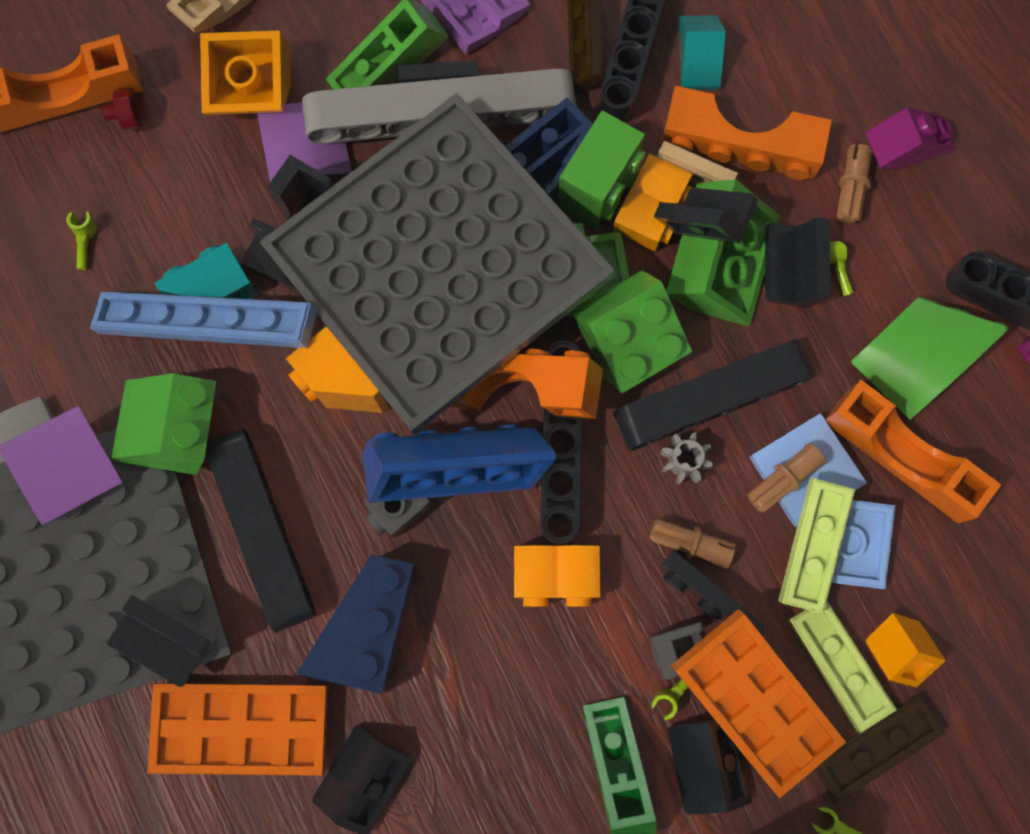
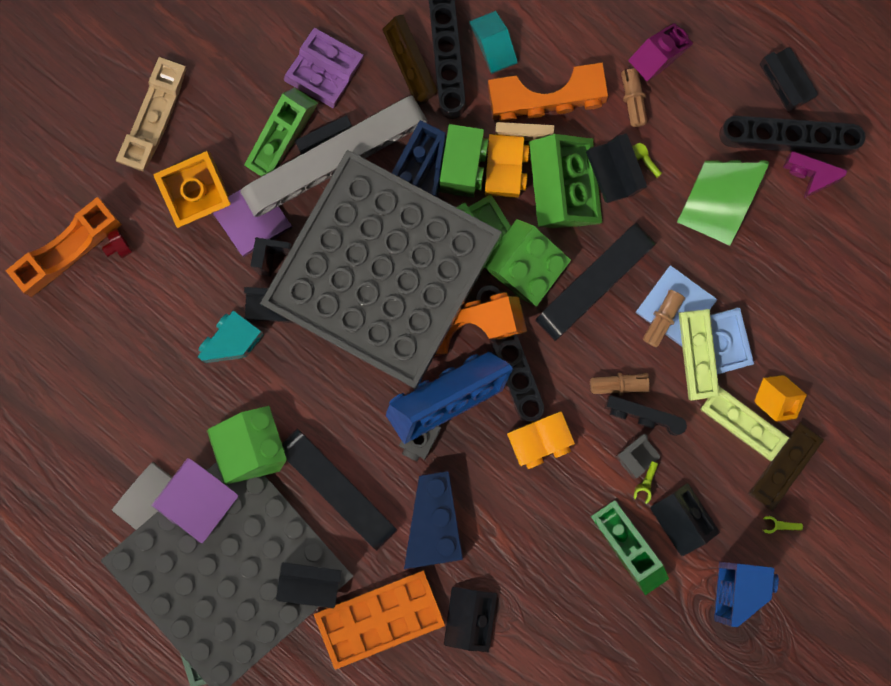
camera: 20 degrees left, 5 degrees up
(83, 234) = (127, 342): lime hand -> none
(205, 319) = (242, 368): medium blue tile -> none
(333, 376) = (345, 371): light orange slope -> none
(684, 470) = (592, 323): light grey gear -> none
(709, 214) = (547, 164): black panel -> none
(758, 703) = (699, 469): orange plate -> none
(942, 479) = (748, 274): orange arch -> none

